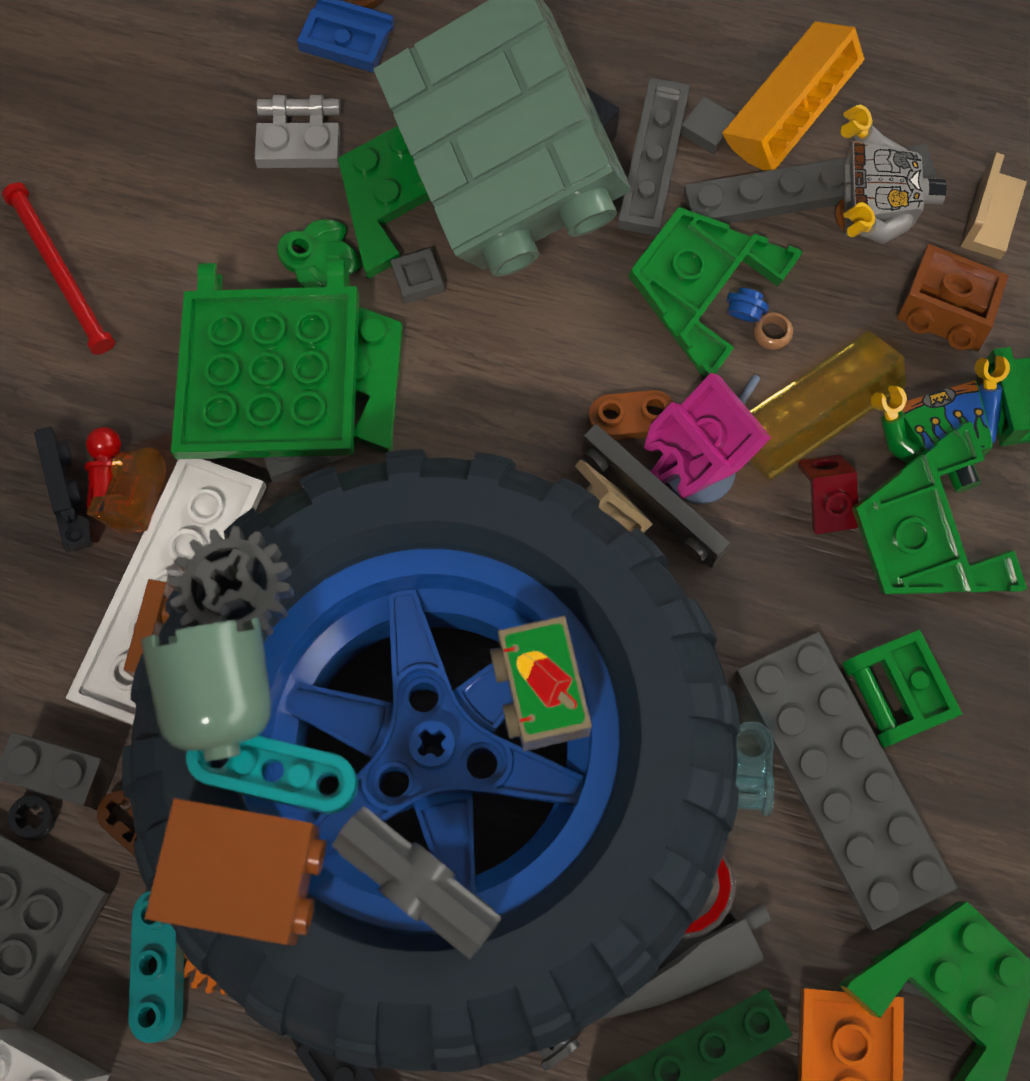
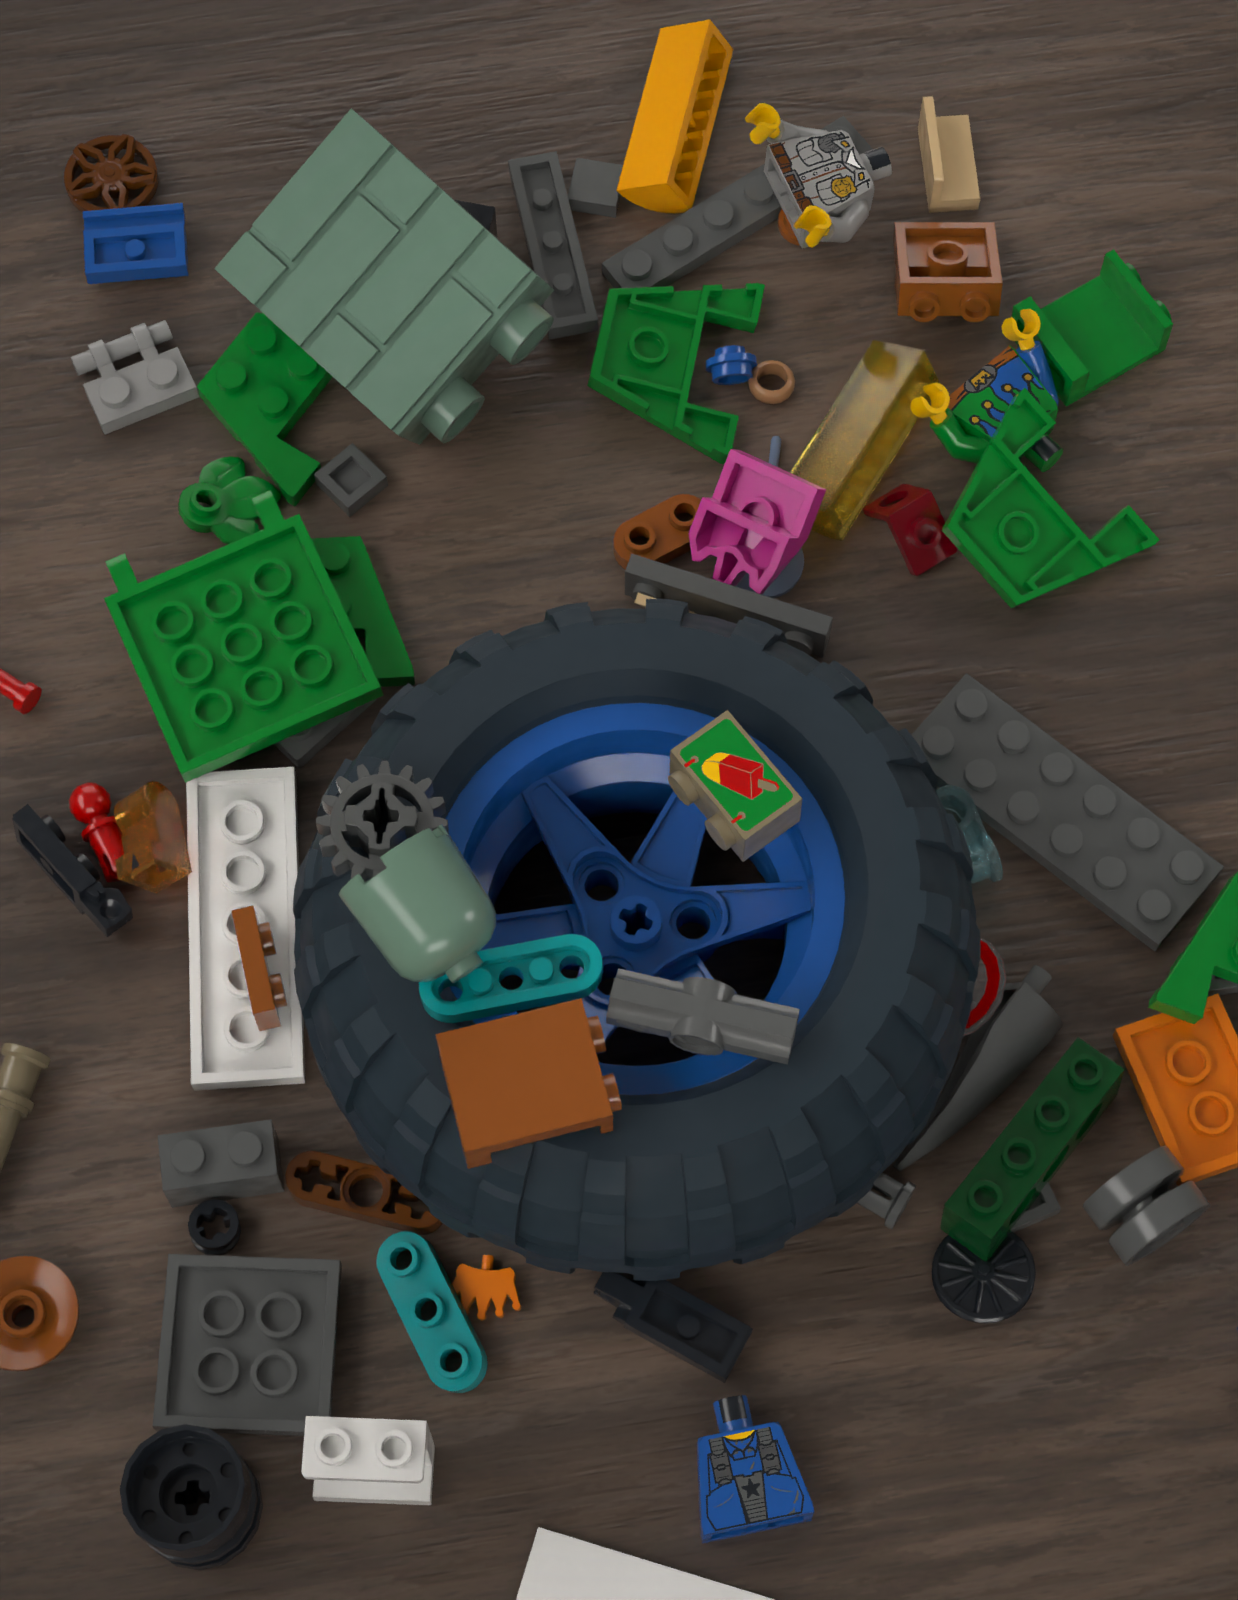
camera: 25 degrees left, 5 degrees down
(915, 682) = (1087, 681): green plate -> none

